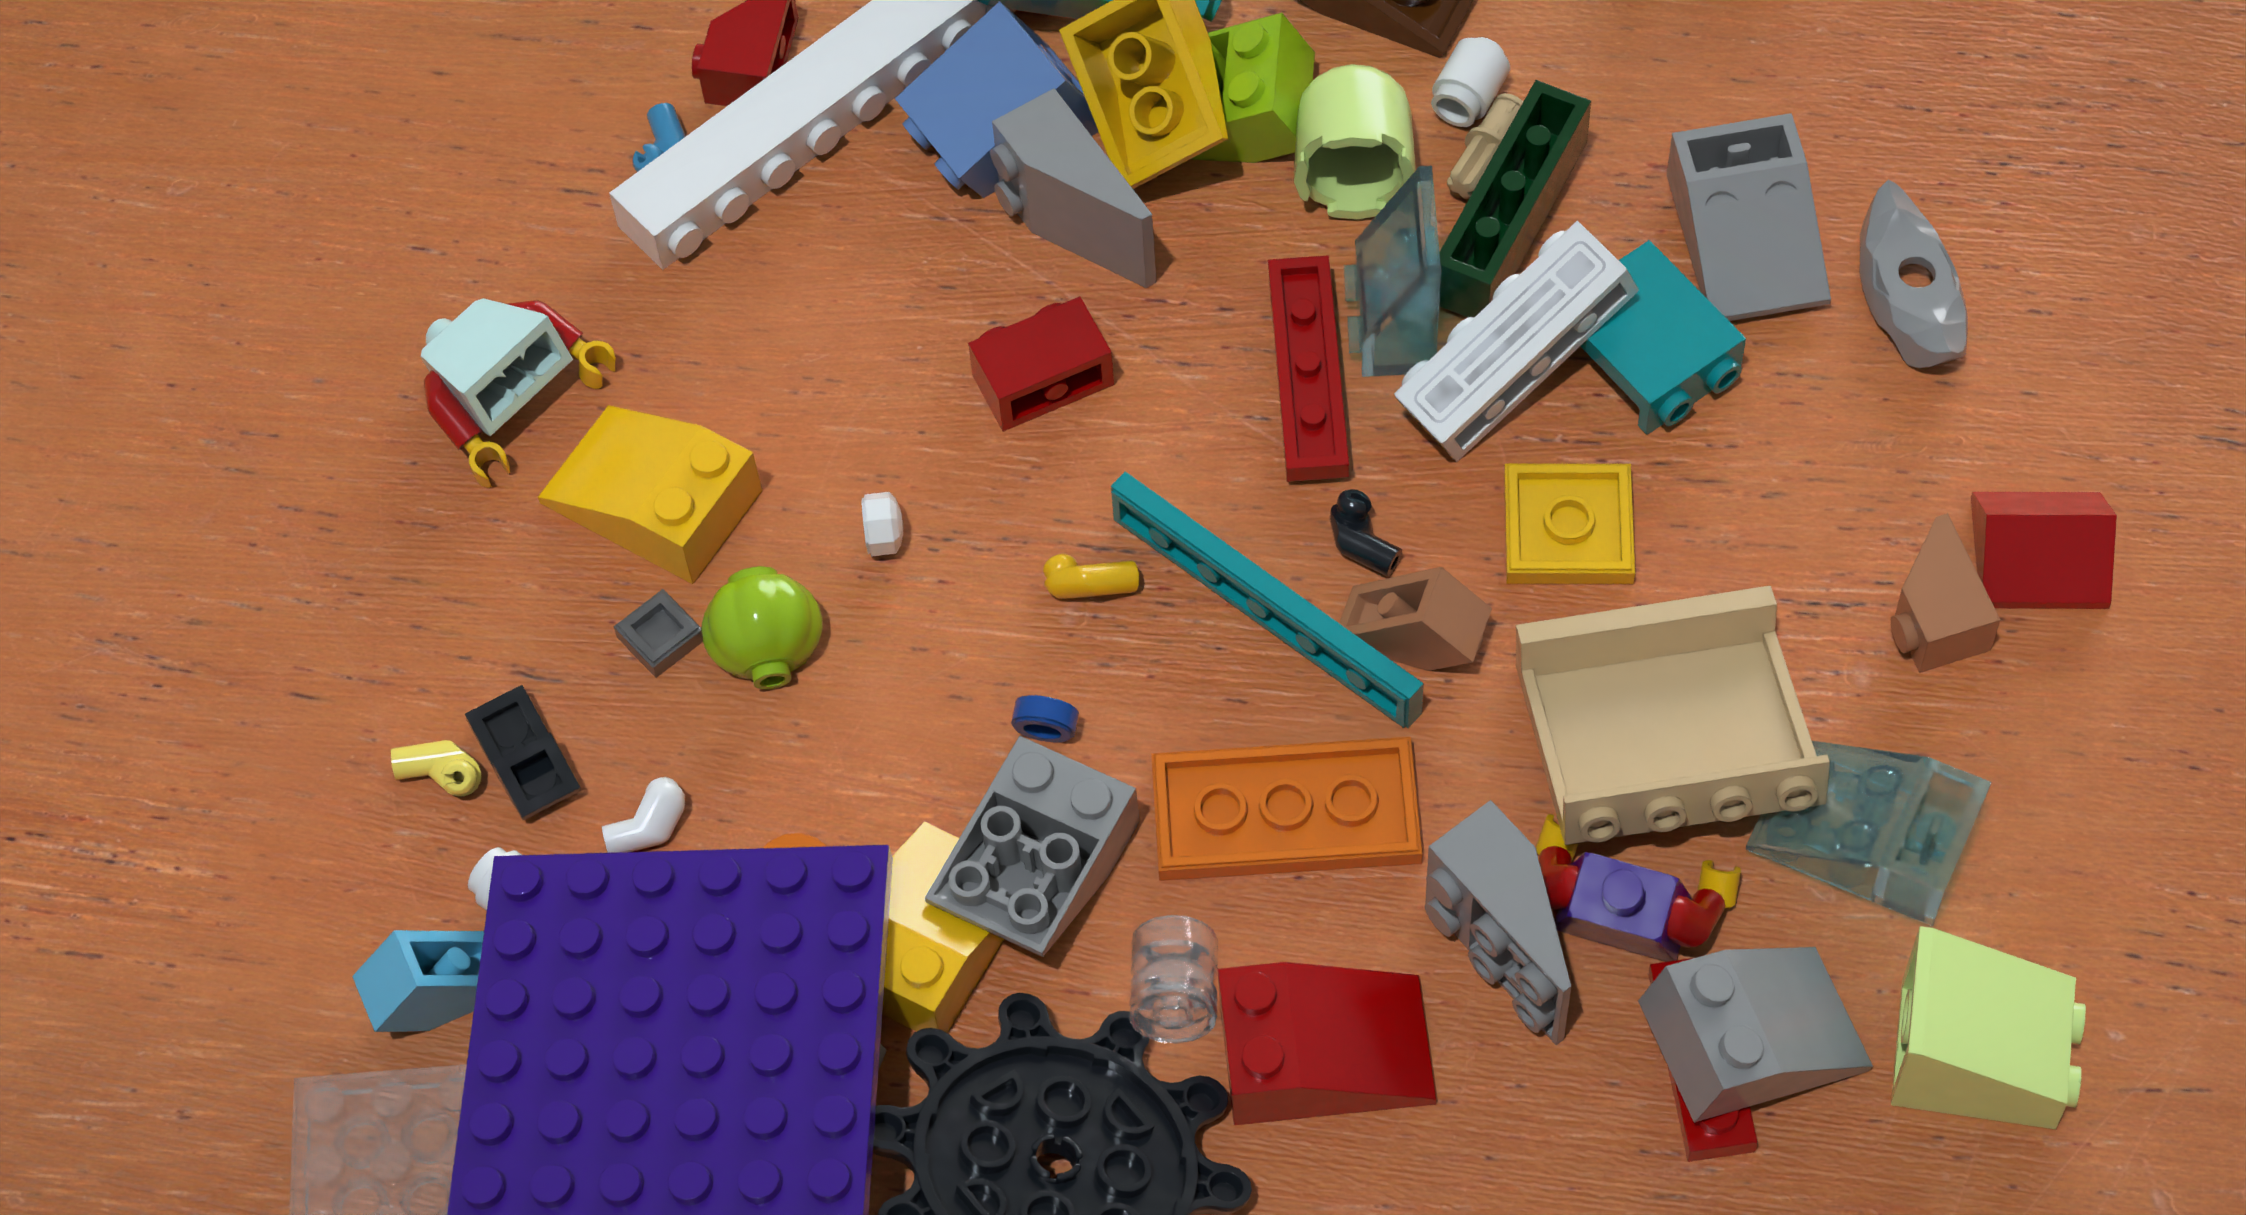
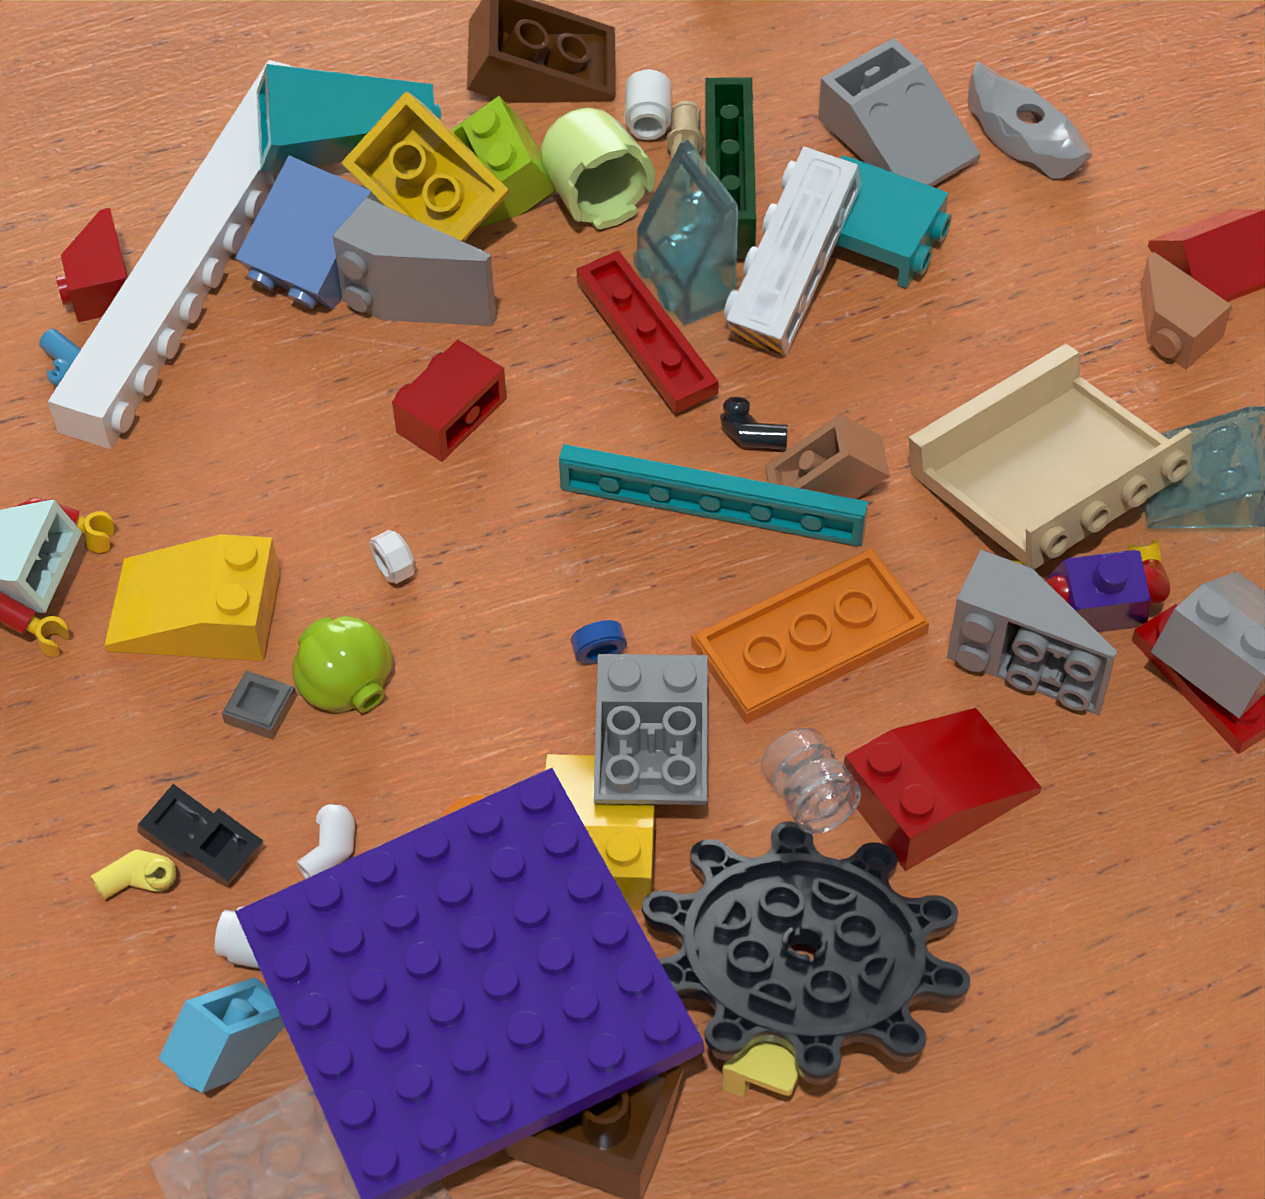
camera: 30 degrees left, 5 degrees down
(1071, 581) = (558, 541): yellow arm -> none
(1568, 524) = (891, 365): yellow tile -> none

